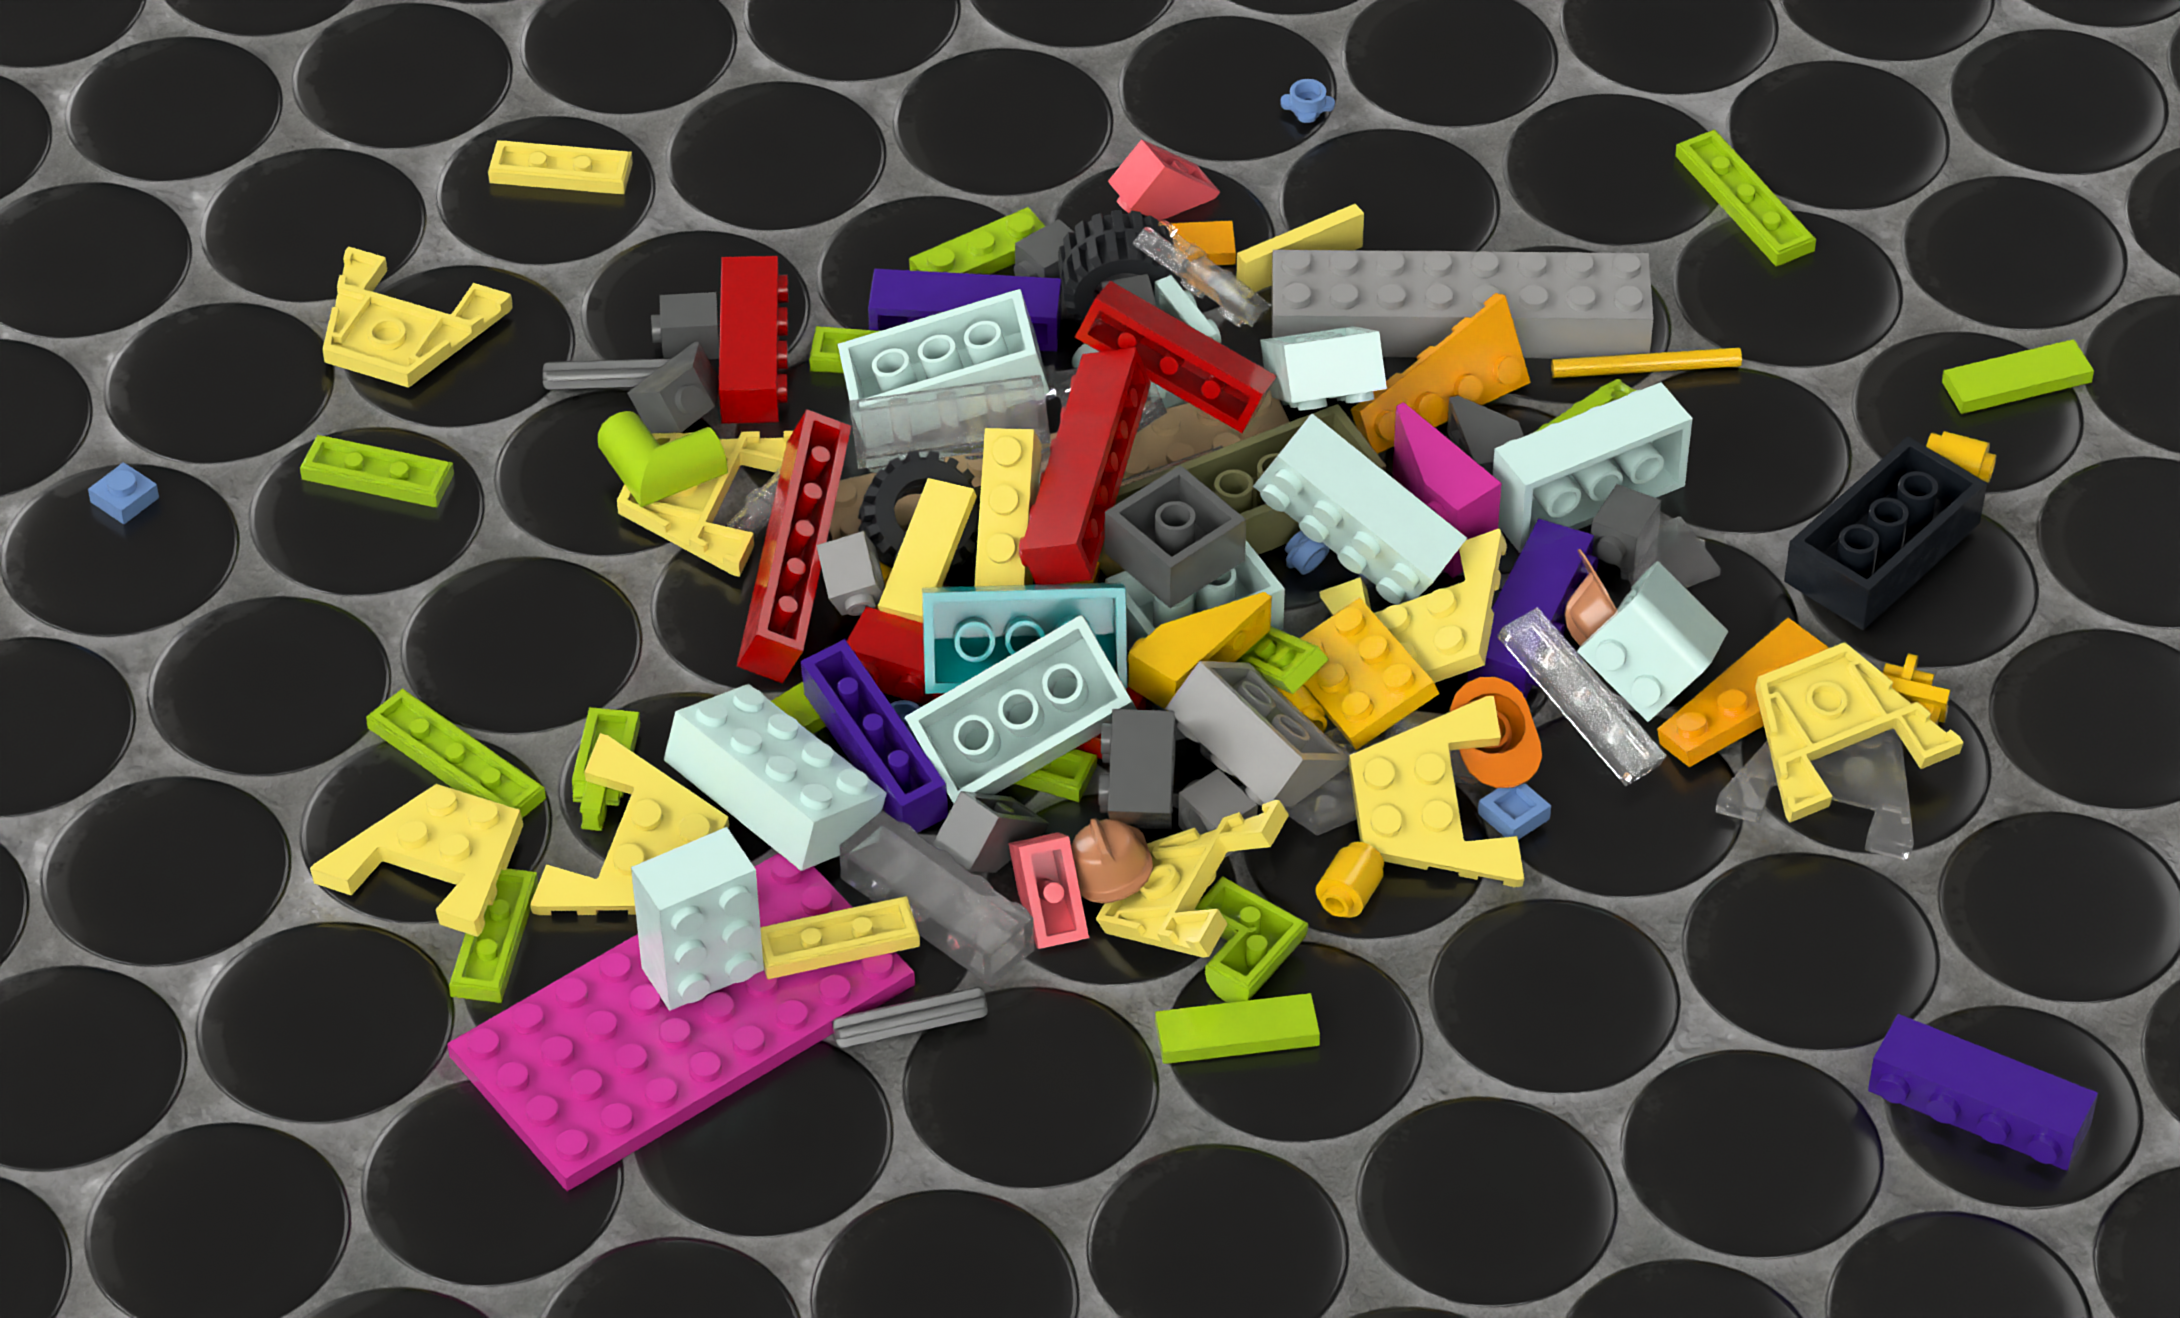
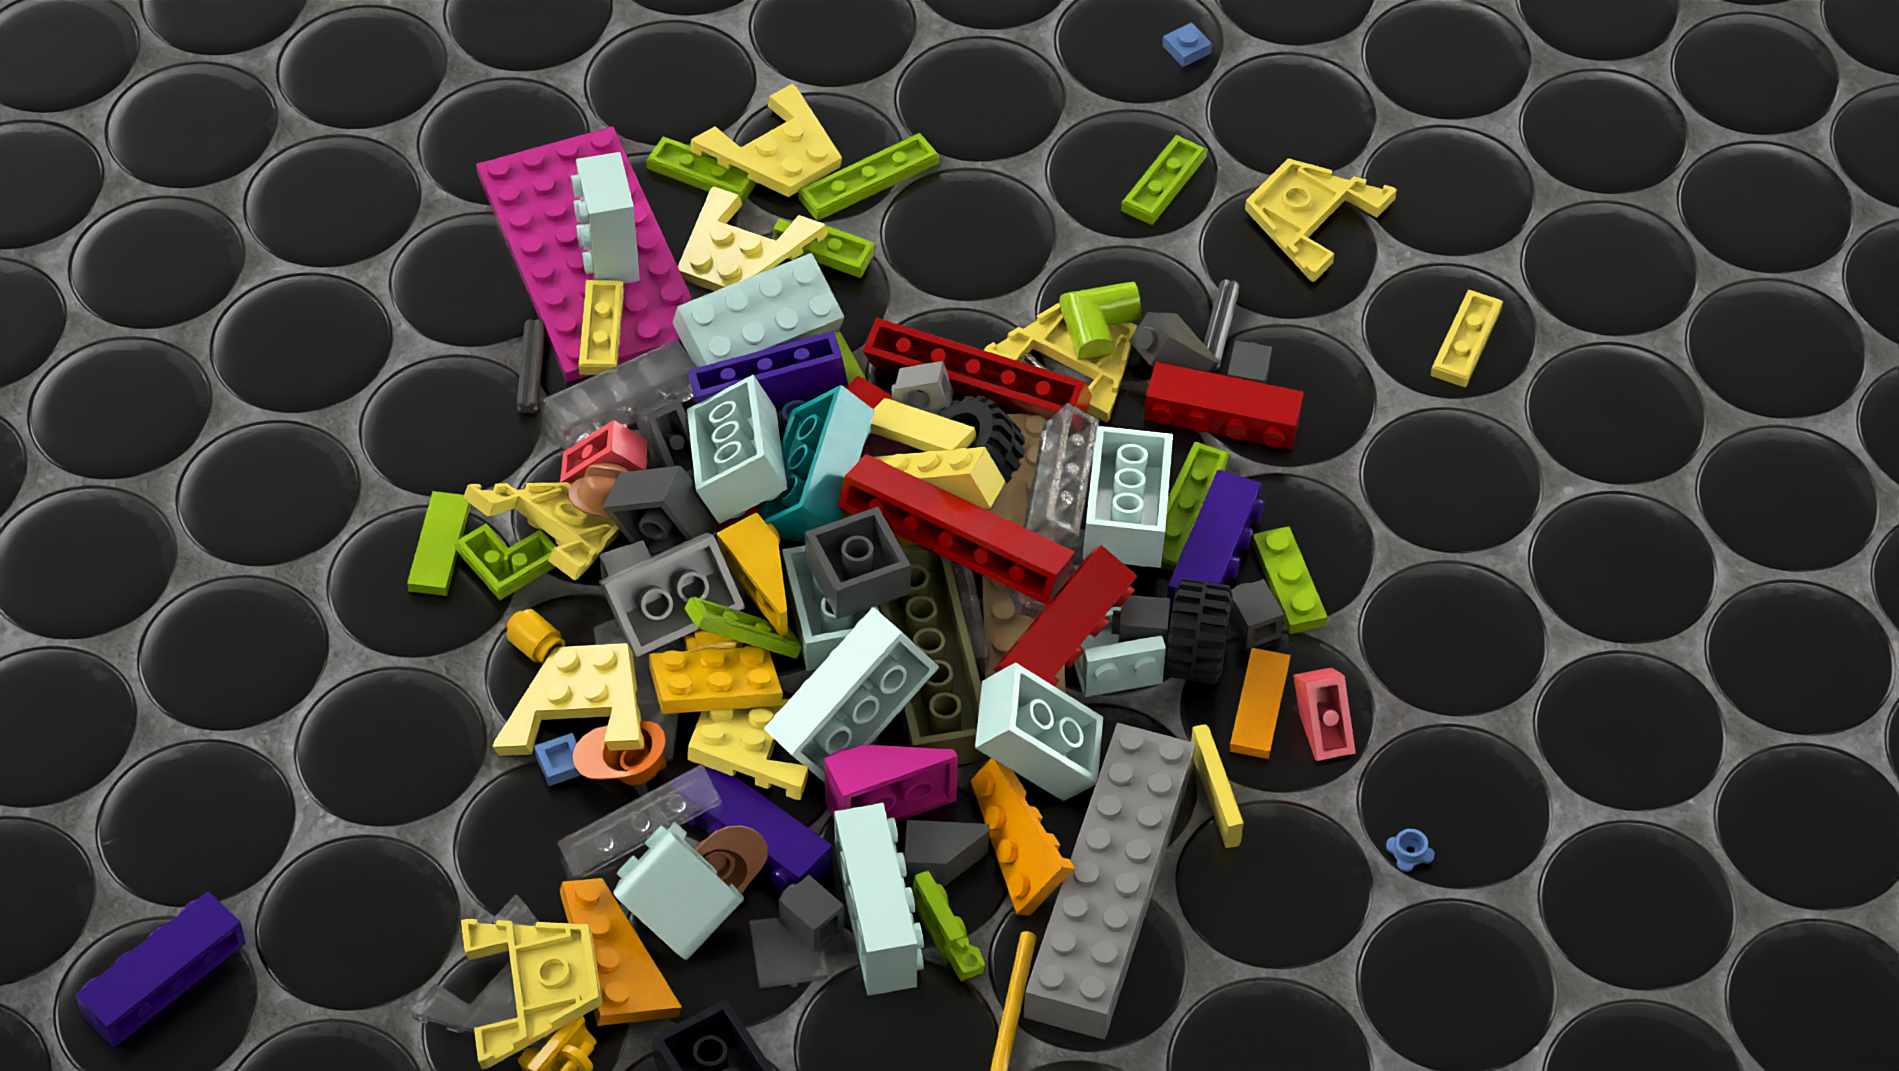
camera: 105 degrees right, 5 degrees up
(1202, 276) = (1160, 693): clear wing -> none

